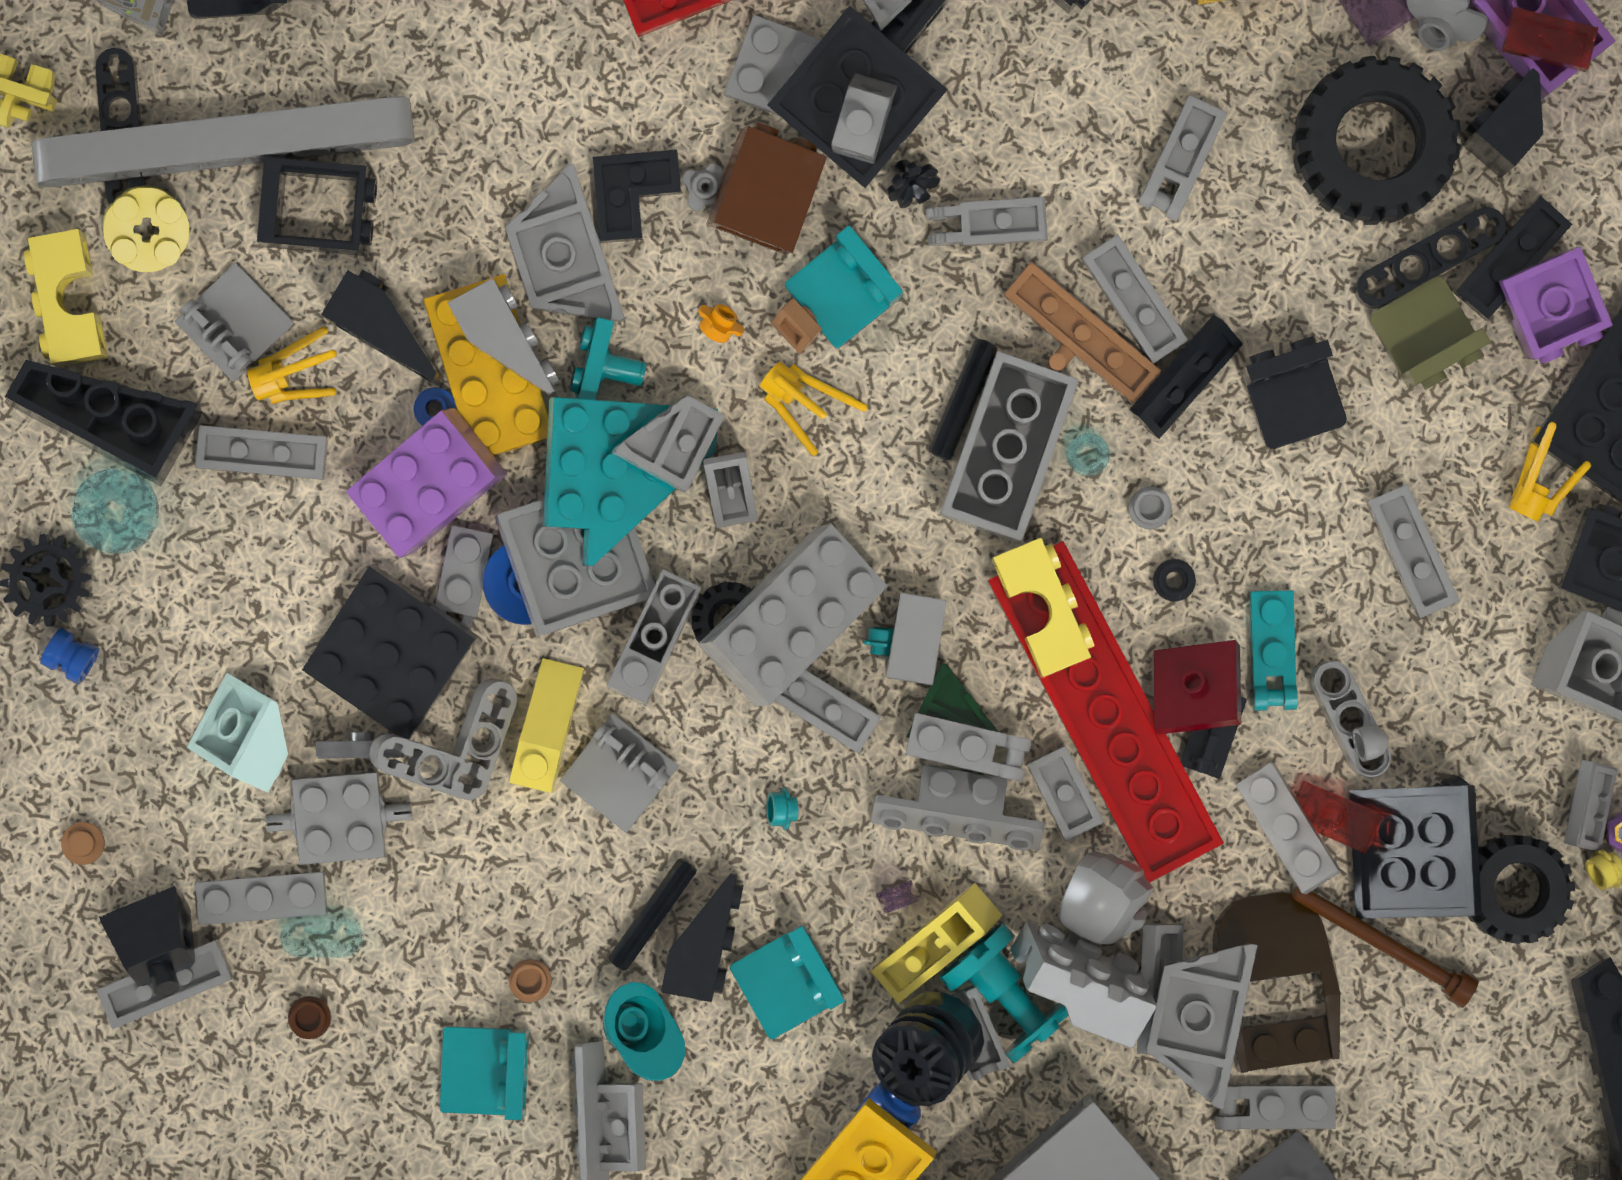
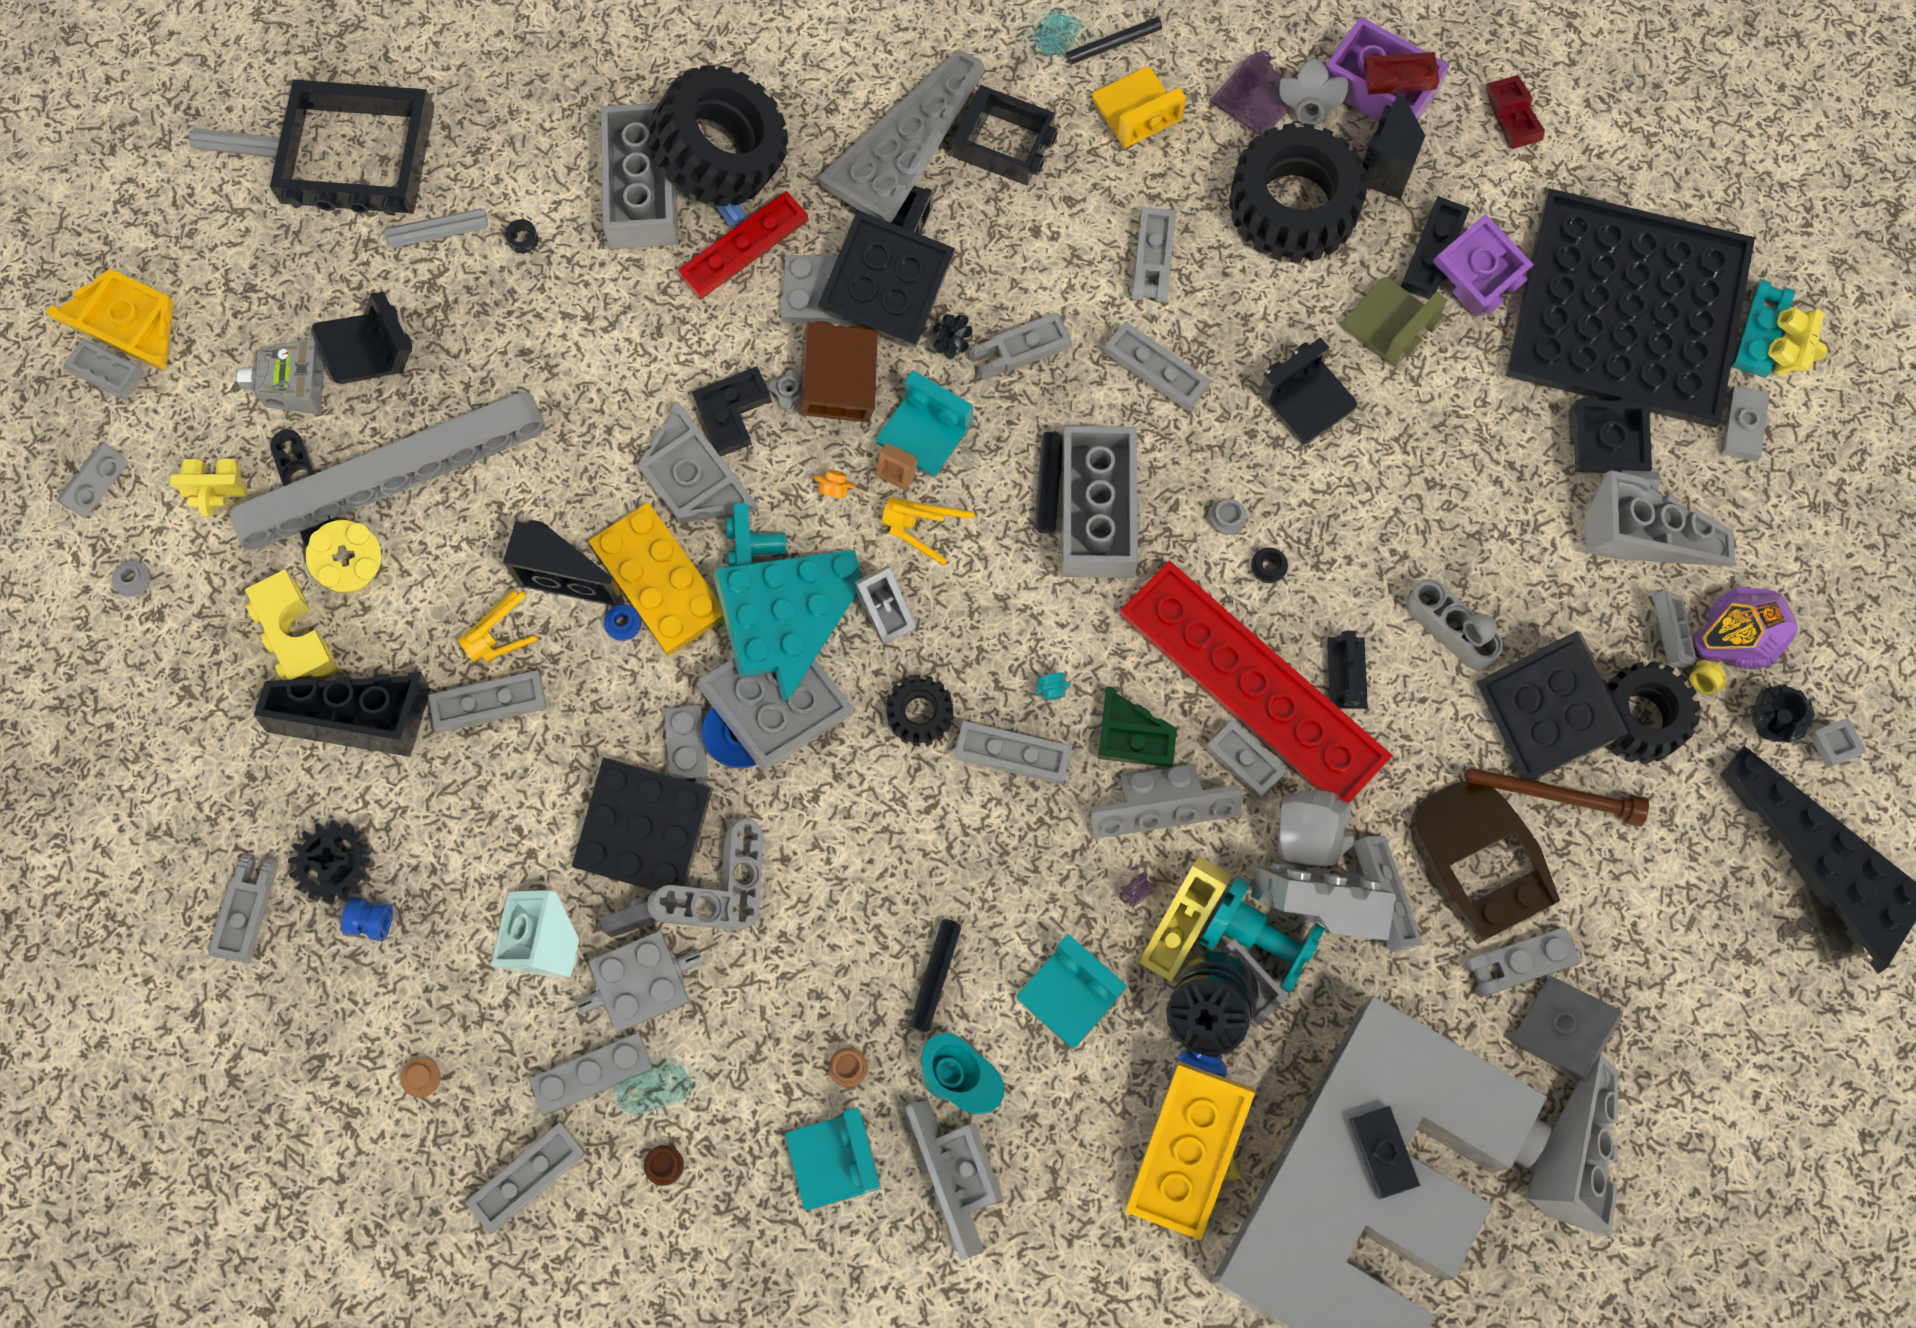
camera: 20 degrees left, 15 degrees down
(92, 505) = (376, 767): clear light blue plate -> none
(153, 939) = (504, 1137): black torso -> none
(234, 322) = (436, 608): light grey hinge -> none
(273, 200) = (471, 469): black window -> none
(426, 482) = (631, 677): medium lavender brick -> none
(493, 329) = (653, 541): light grey slope -> none
(546, 726) = (794, 848): light yellow slope -> none
(619, 773) = (868, 866): light grey hinge -> none
(653, 638) = (861, 744): light grey slope -> none
(673, 442) = (825, 577): light grey wing -> none
(696, 955) = (984, 993): black slope -> none
(781, 809) = (1015, 849): teal plate -> none
(793, 615) = (970, 682): light grey brick -> none
(863, 118) = (896, 286): light grey torso -> none
(916, 639) = (1079, 674): light grey hinge -> none
(966, 746) = (1152, 744): light grey plate -> none
(1033, 570) = (1155, 586): light yellow arch -> none
(1081, 334) = (1125, 403): medium nougat plate -> none
(1096, 443) = (1163, 482): clear light blue plate -> none
(1186, 376) = (1219, 408): black plate -> none
(1197, 687) = (1322, 636): dark red plate -> none
(1201, 1018) = (1434, 901): light grey wing -> none
(1273, 648) = (1369, 593): teal plate -> none
(1288, 828) = (1441, 725): light grey plate -> none
(1339, 817) = (1474, 704): clear red plate -> none
(1412, 551) = (1449, 482): light grey plate -> none
(1428, 255) = (1370, 267): black beam -> none
(1531, 497) = (1524, 411): yellow plant -> none

